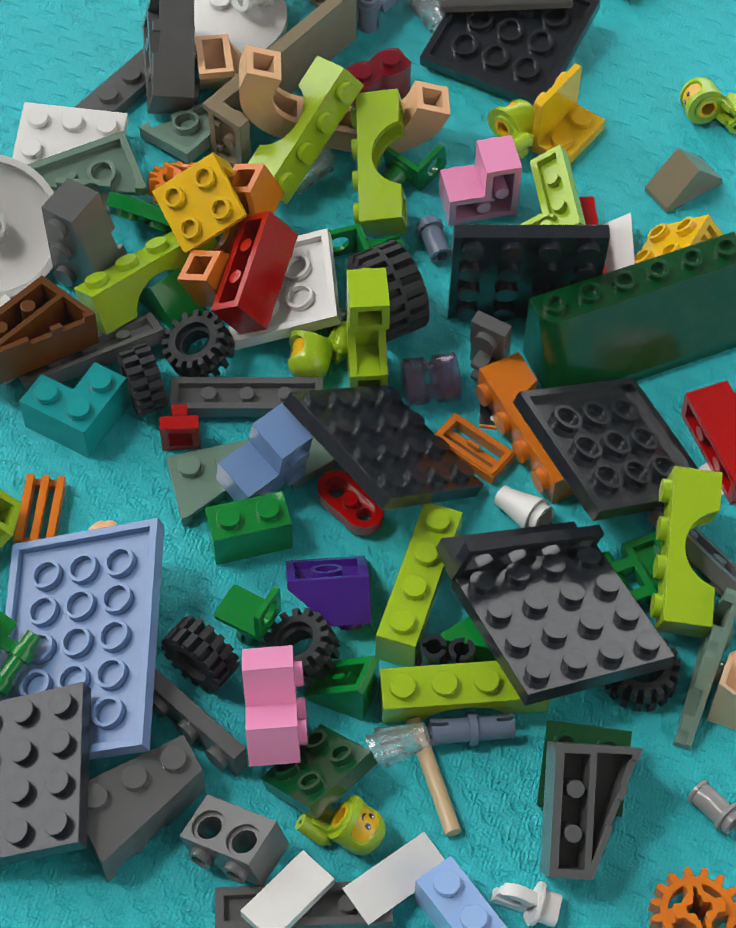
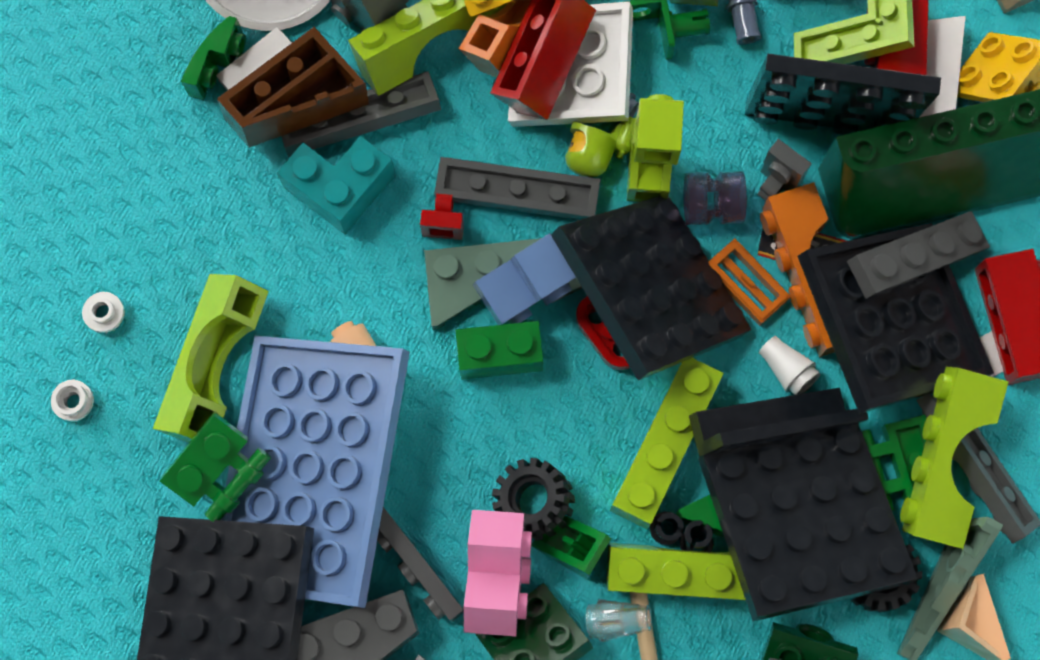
camera: 10 degrees right, 20 degrees up
(44, 485) = (274, 285): orange tile -> none
(143, 378) = (408, 159): black tyre -> none
(168, 298) = (451, 64): green slope -> none
(190, 331) = (455, 112): black tyre -> none
(200, 653) = (430, 494): black tyre -> none
(249, 612) = (484, 457): green bracket -> none
(333, 588) = (574, 431): dark purple slope -> none
(405, 286) = (688, 74): black tyre -> none
(472, 729) = (695, 611): sand blue pin -> none
(623, 396) = (918, 254): none -> dark grey plate

